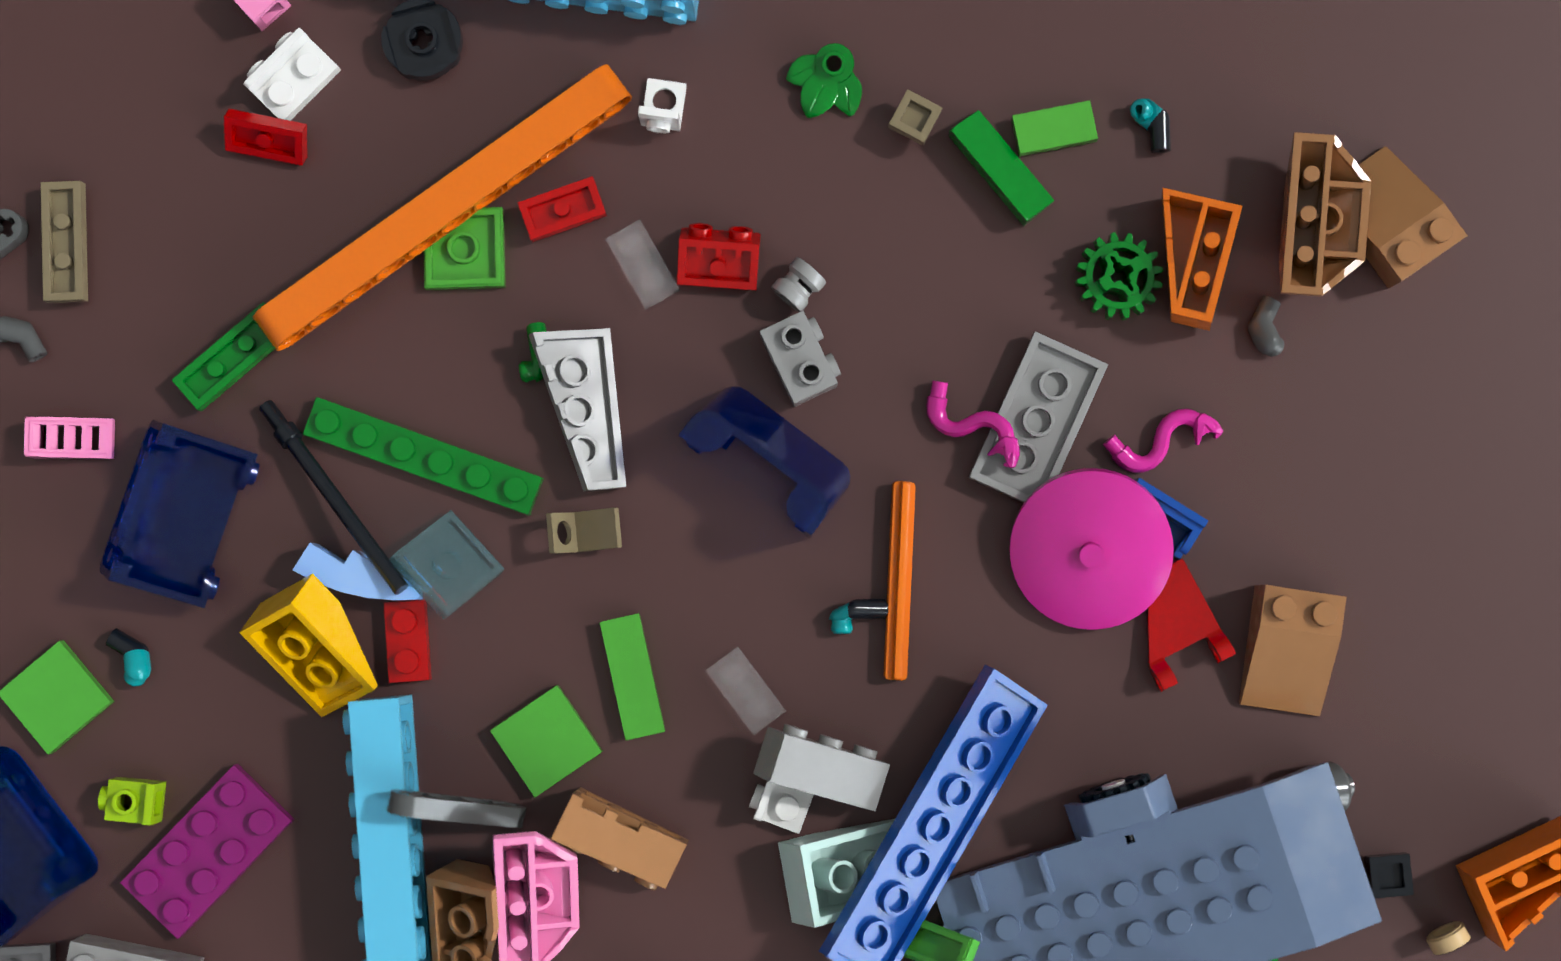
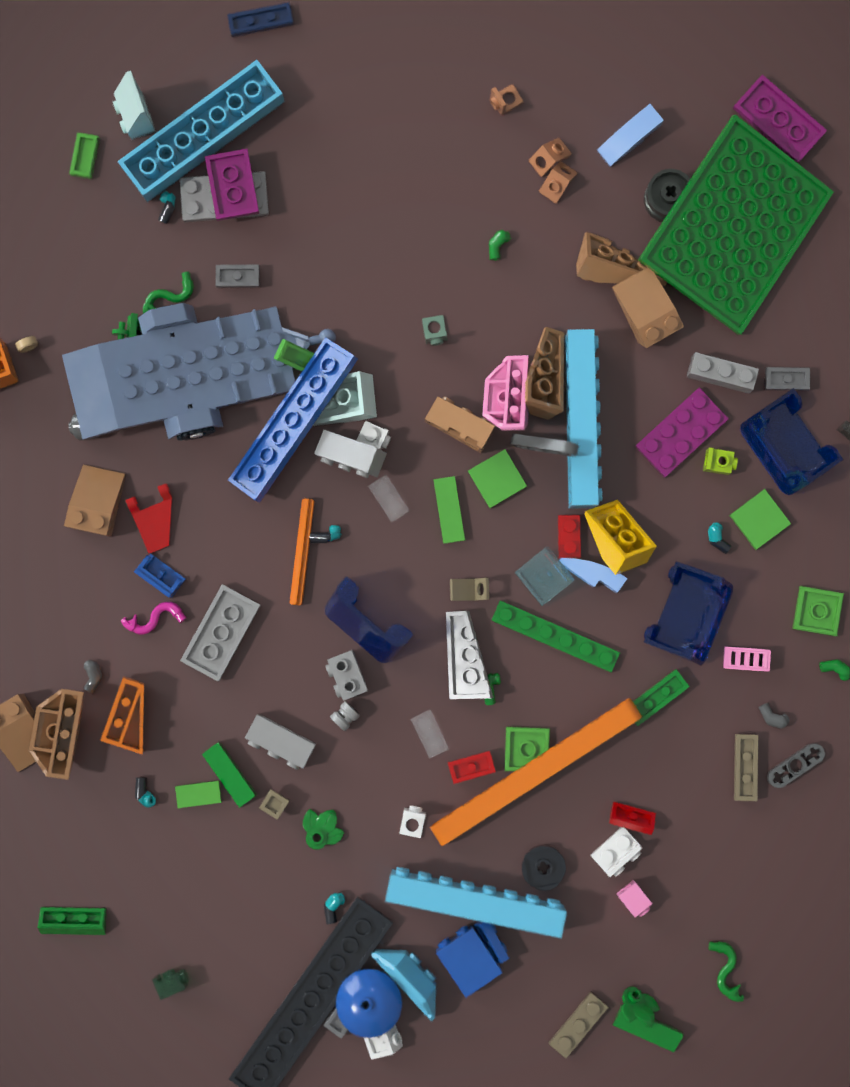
camera: 170 degrees left, 0 degrees up
(290, 438) = (626, 650): black bar -> none
(718, 257) = (387, 734): red bracket -> none
(912, 230) = (280, 741): none -> light grey brick
(936, 412) = (275, 643): dark pink animal -> none
(1091, 548) = (197, 561): dark pink dish -> none
(1127, 289) = (165, 699): green gear -> none
(1389, 874) = (54, 378): black plate -> none

